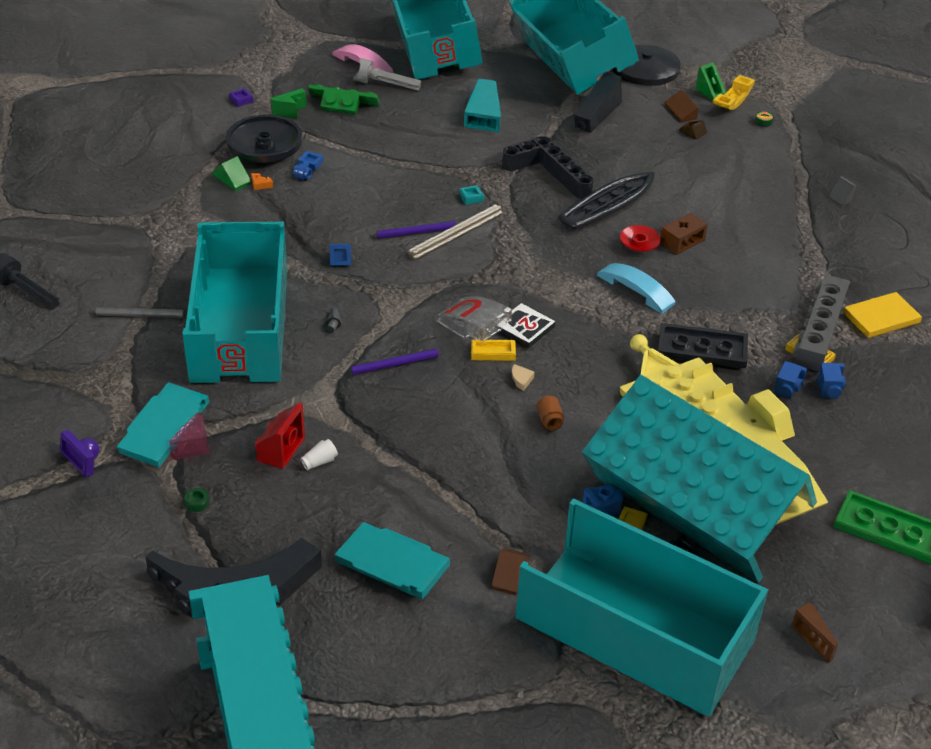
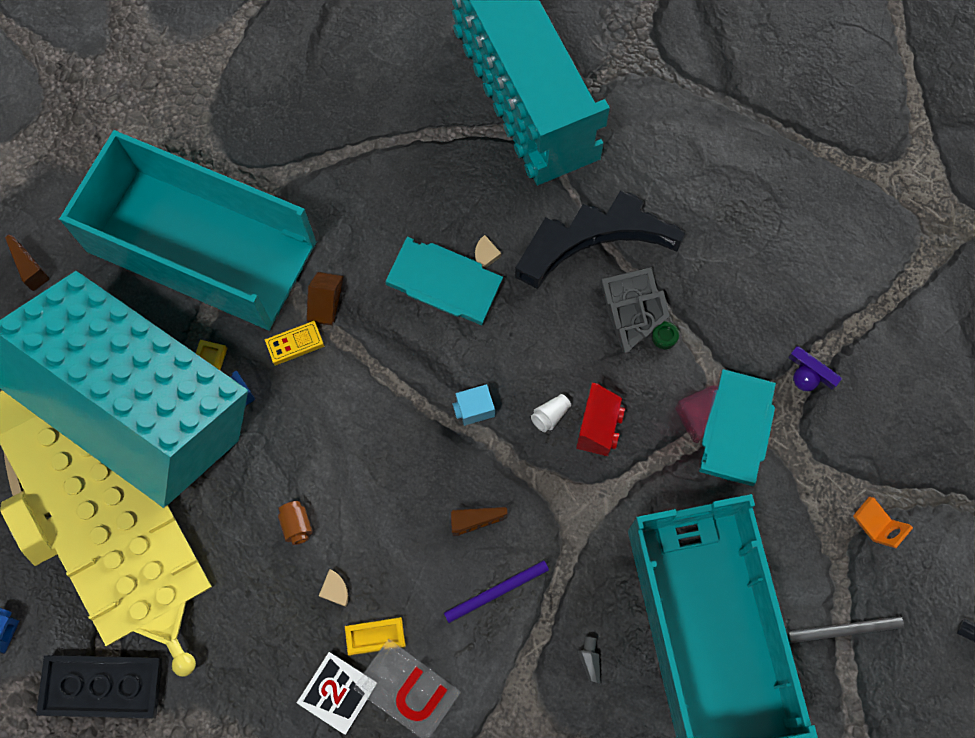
camera: 175 degrees right, 30 degrees up
(83, 358) = (879, 525): none -> orange bracket
(215, 523) = (634, 305): none -> dark grey slope
(345, 584) = (486, 252): none -> tan tile
(385, 466) = (474, 405): none -> medium azure brick
(412, 391) = (472, 519): none -> reddish brown slope
(541, 537) = (294, 343): none -> yellow tile

